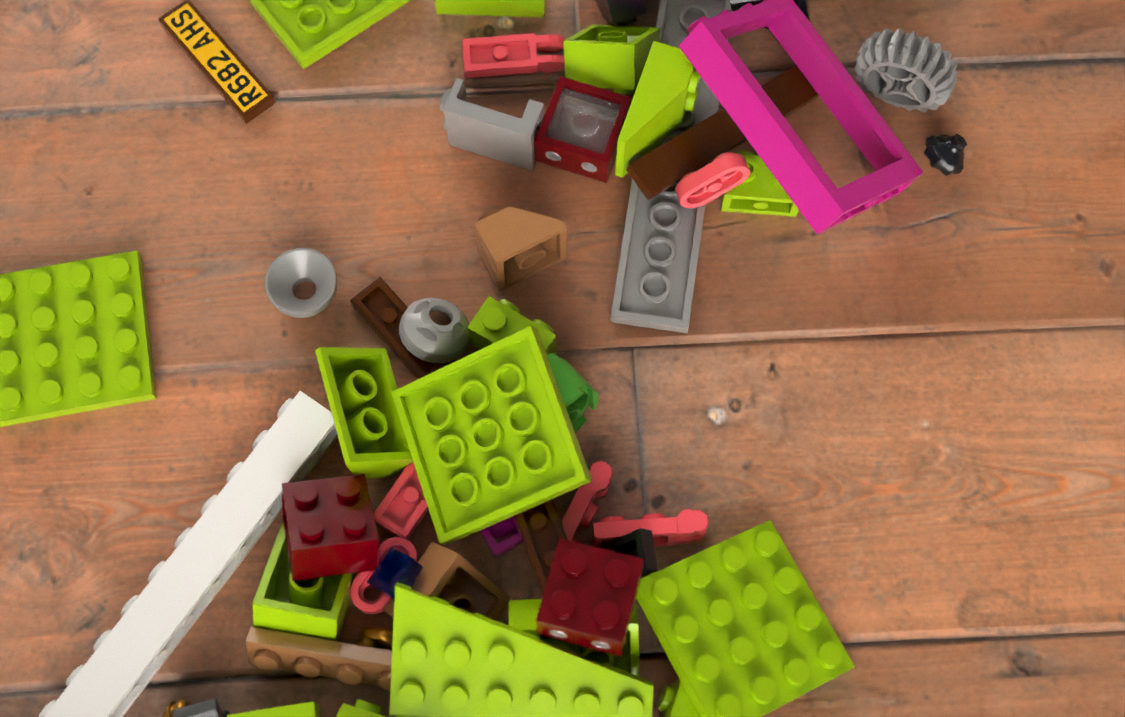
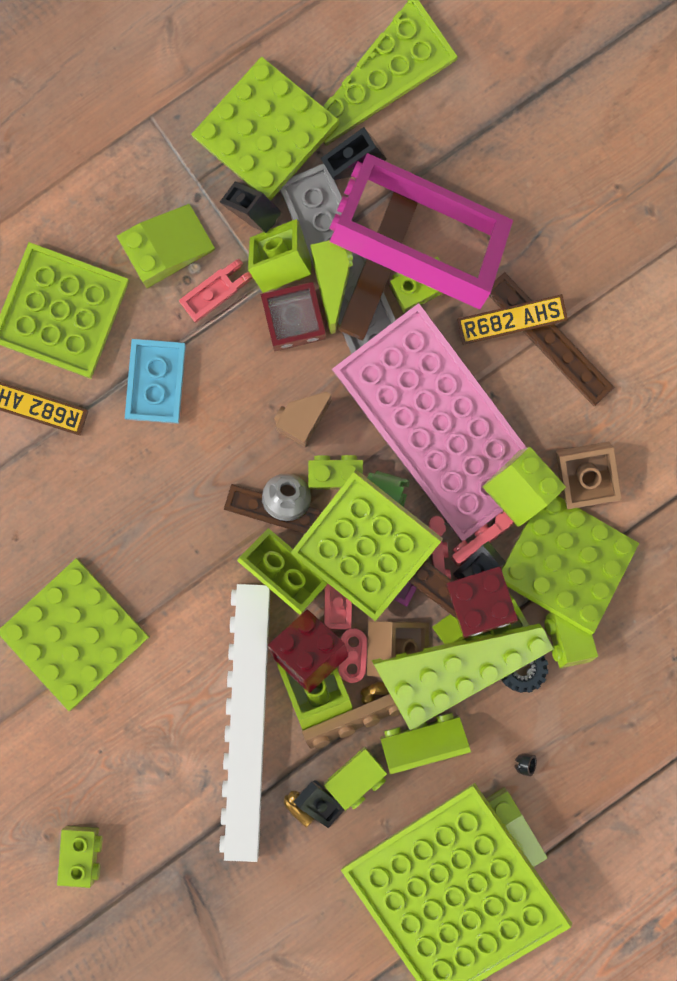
camera: 30 degrees left, 15 degrees up
(298, 267) = (175, 518): light grey piece -> none
(373, 111) = (155, 381): none -> medium azure plate
(393, 569) = (361, 653): clear blue plate -> none
(490, 131) = (239, 355): light grey panel -> none
(683, 355) = (432, 417): none -> bright pink plate
(712, 180) = (398, 300): coral plate -> none
(742, 489) = (524, 486): none -> lime slope
(837, 533) = (588, 475): none -> medium nougat slope
(853, 287) = (512, 319): none -> tile
(887, 345) = (555, 345): none -> reddish brown tile
(906, 70) = (465, 158): light grey gear -> none
(946, 153) = (517, 196): black piece -> none

